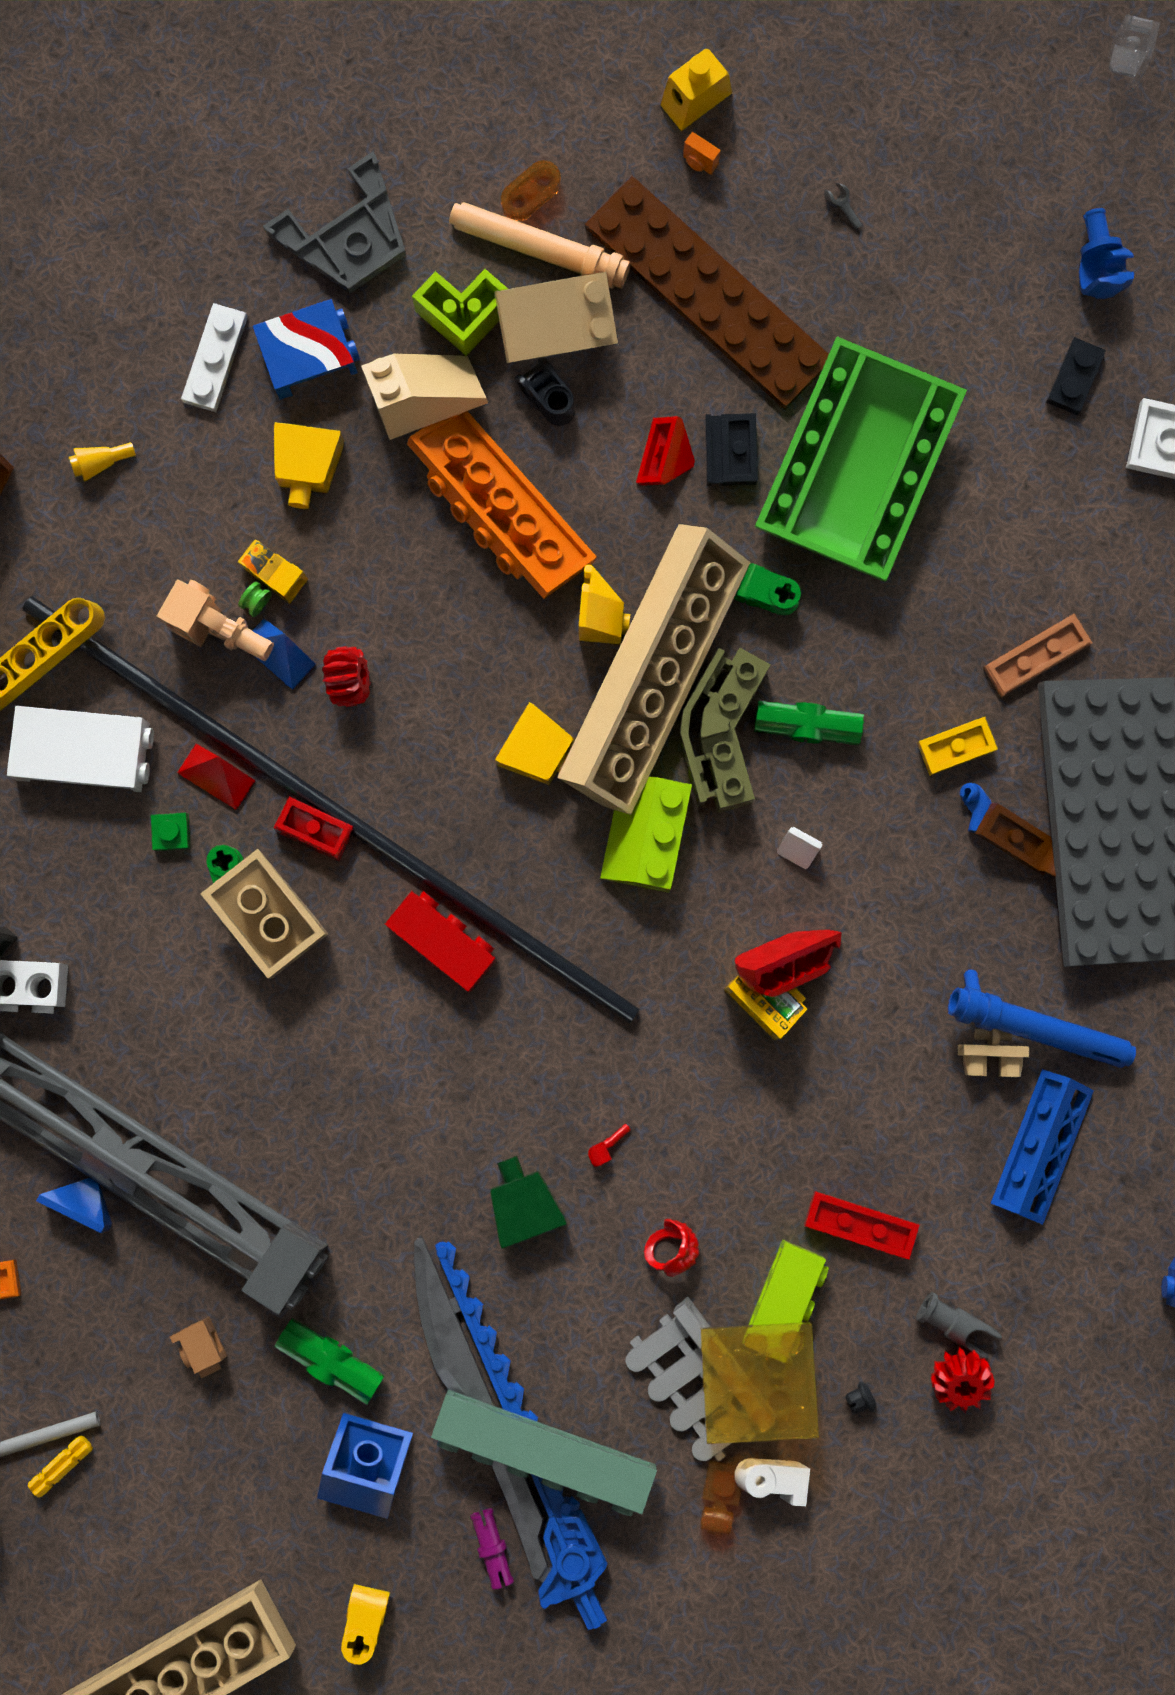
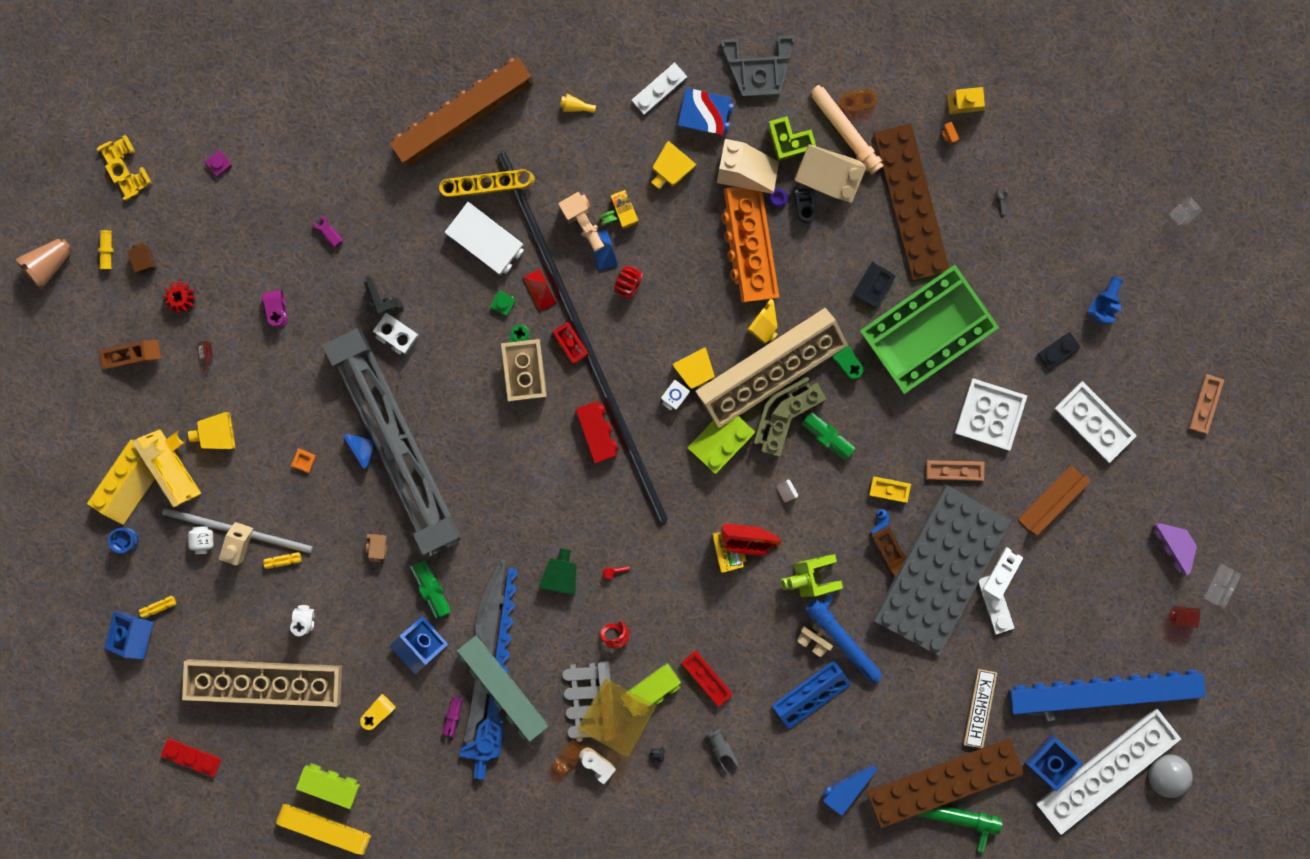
camera: 30 degrees right, 5 degrees up
(149, 1548) = (302, 620): none -> white connector
(500, 409) = (778, 198): none -> dark purple plate
(529, 808) = (674, 395): none -> white brick
(666, 452) = (843, 267): red slope -> none
(917, 967) = (805, 580): none -> lime piece
(962, 1380) = (708, 773): red gear -> none
(1037, 535) = (990, 414): none -> white plate

